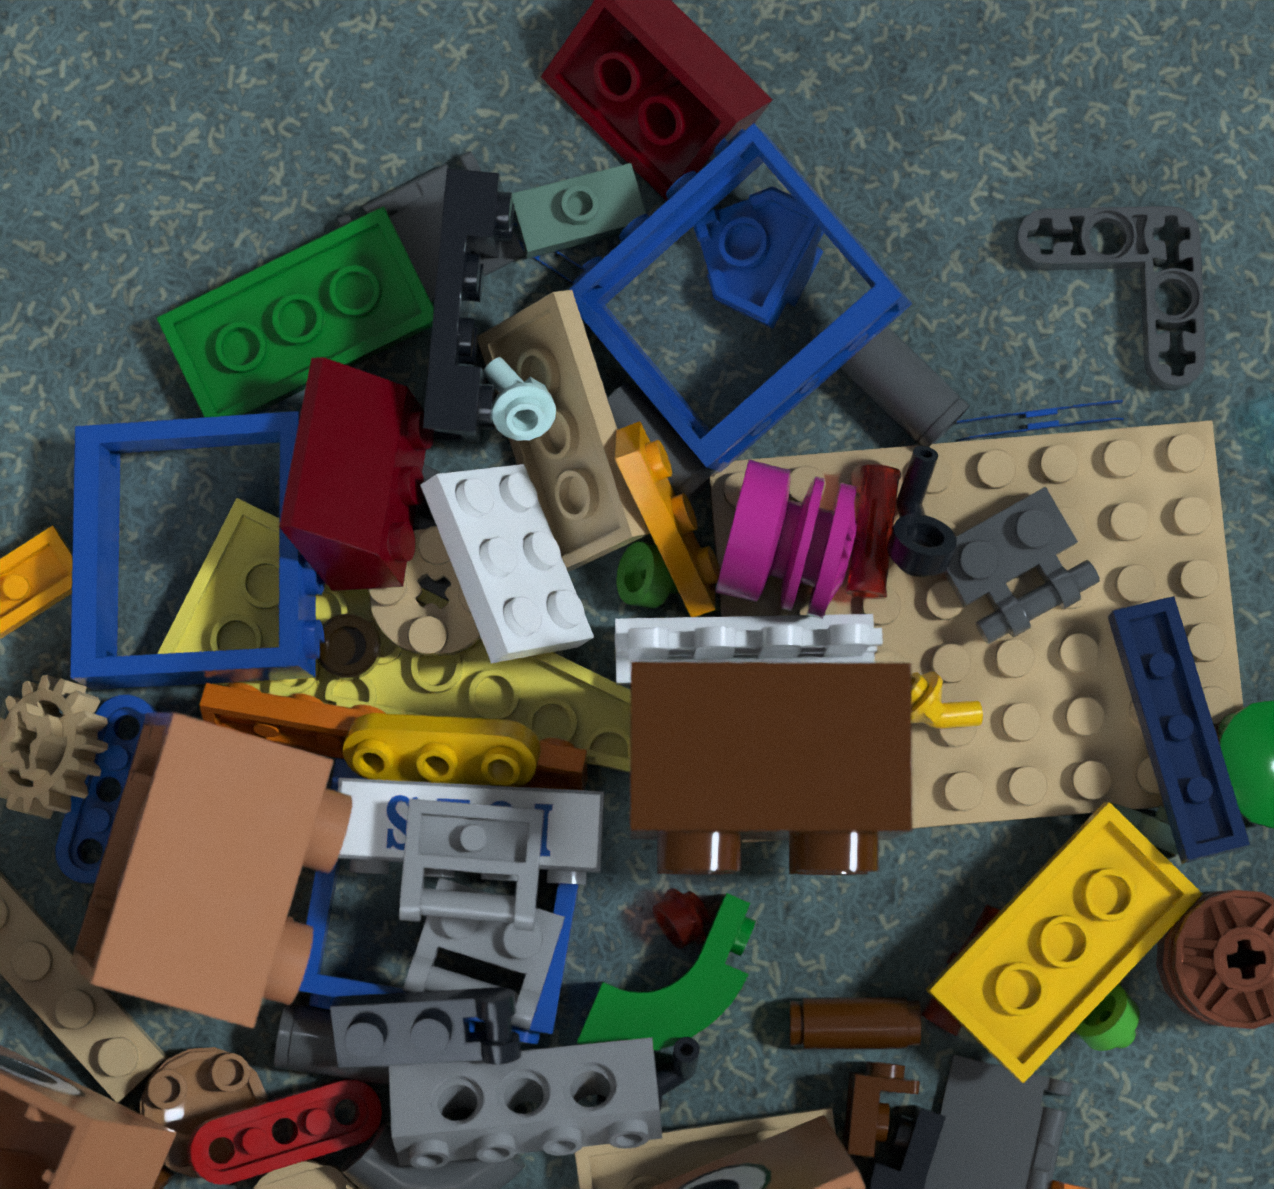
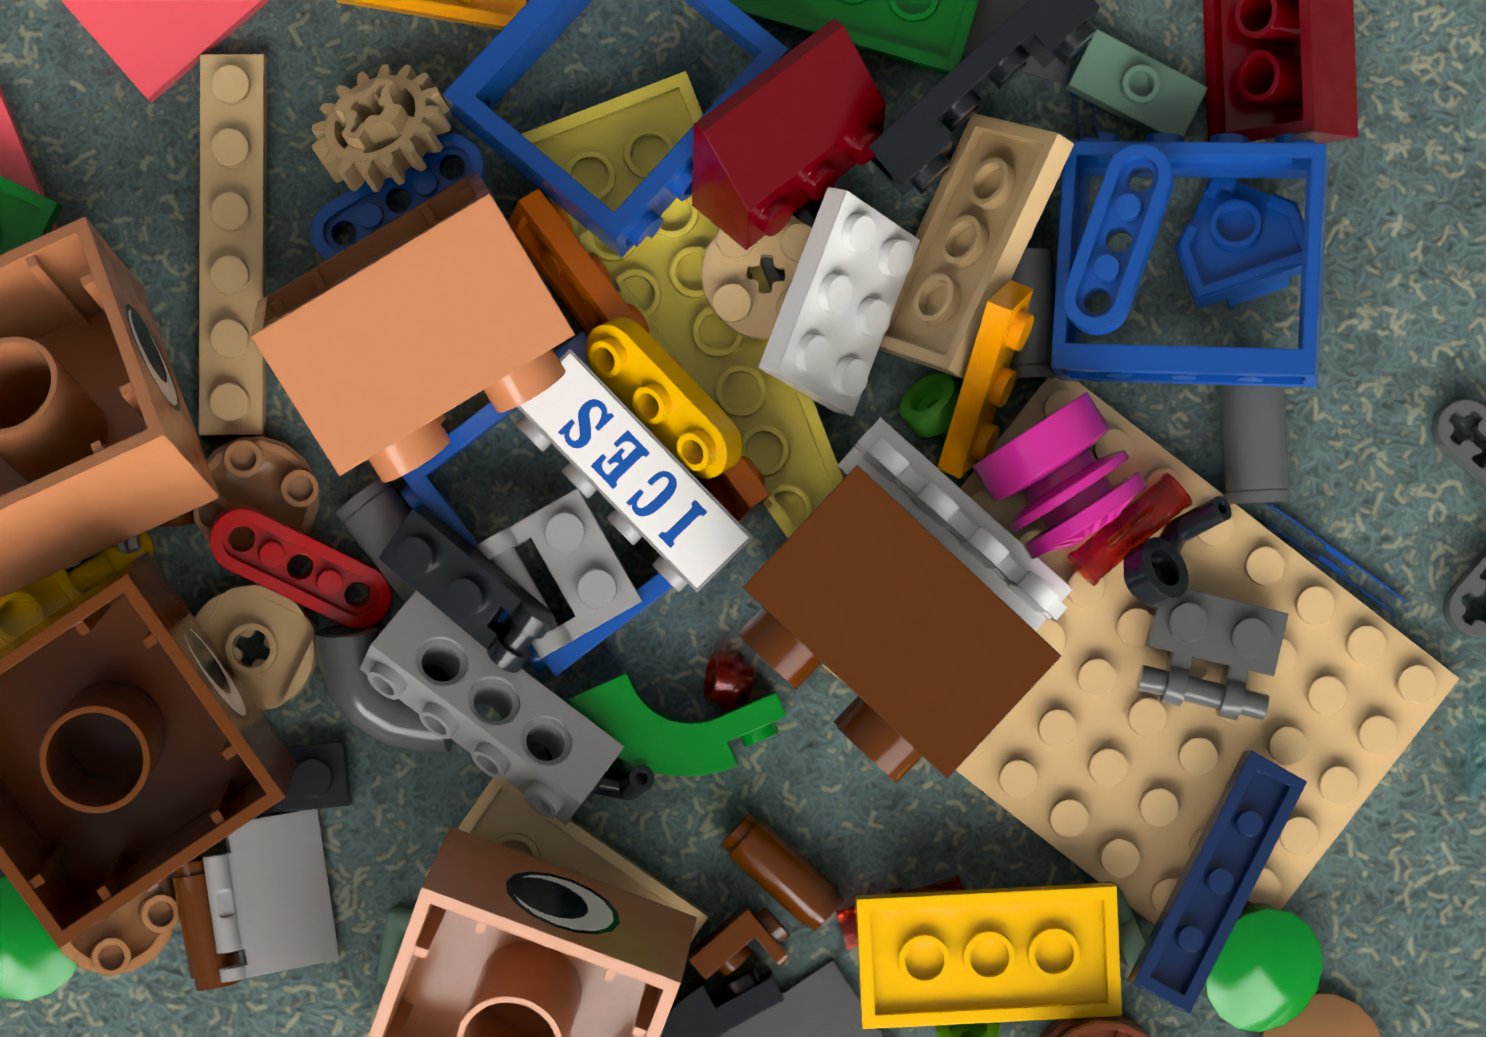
camera: 45 degrees right, 5 degrees up
(349, 647) = (667, 258): dark brown tile -> none
(471, 841) = (626, 488): light grey plate -> none
(521, 407) = (956, 197): light aqua plate -> none
(649, 309) = (1114, 212): none -> blue plate
(927, 705) = (1048, 697): yellow plate -> none

